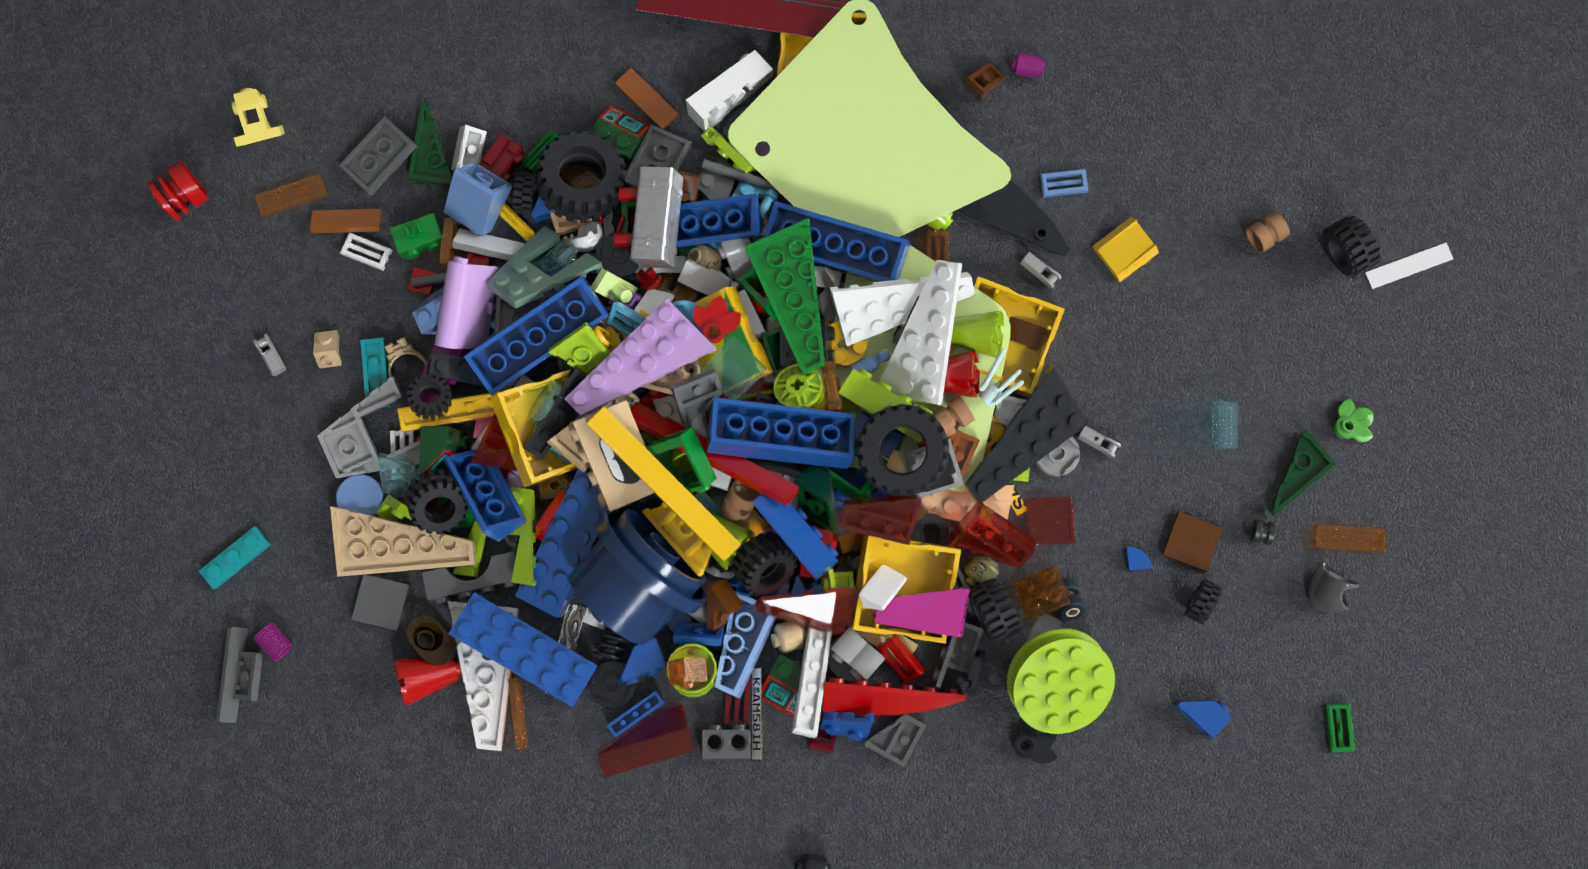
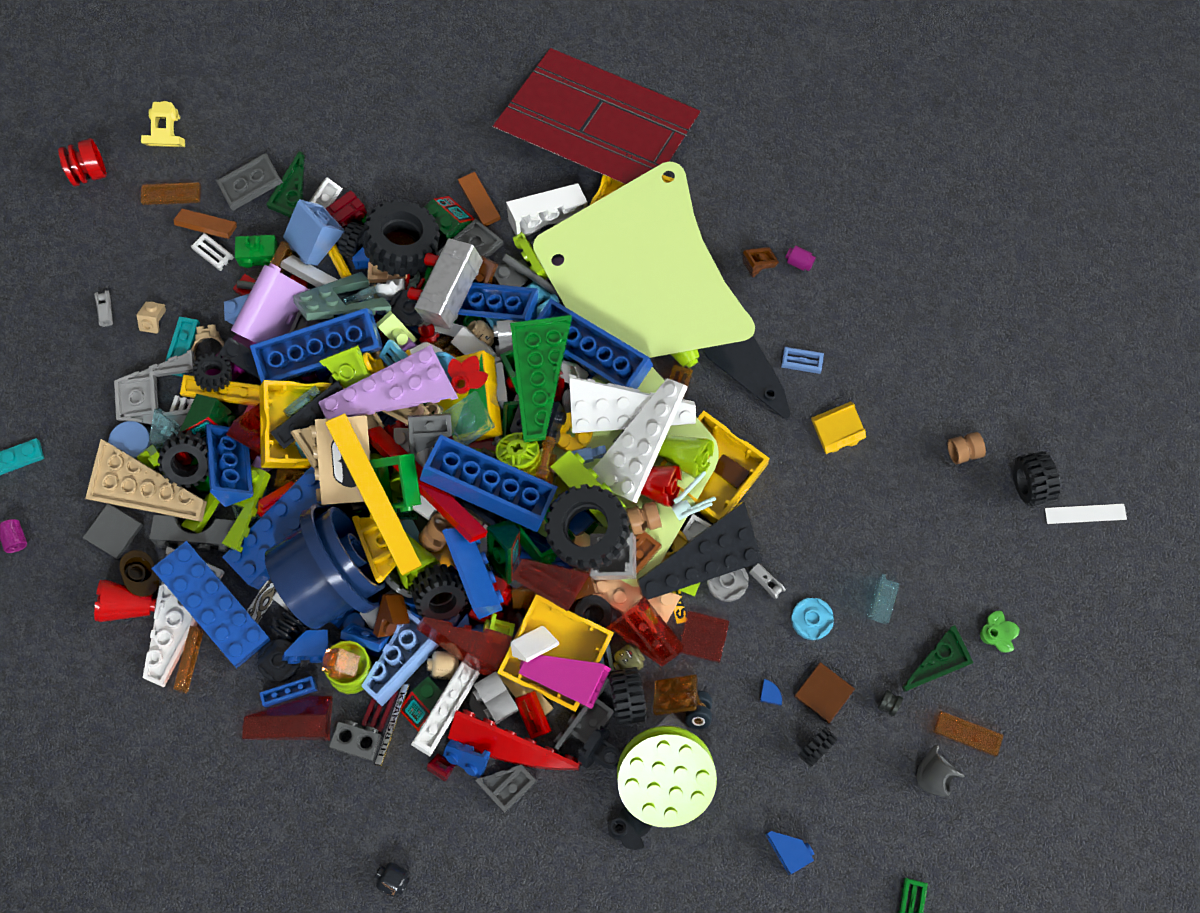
camera: 20 degrees right, 10 degrees down
(1037, 267) = (758, 422): light grey bar -> none
(1157, 467) = (812, 618): none -> medium azure tile

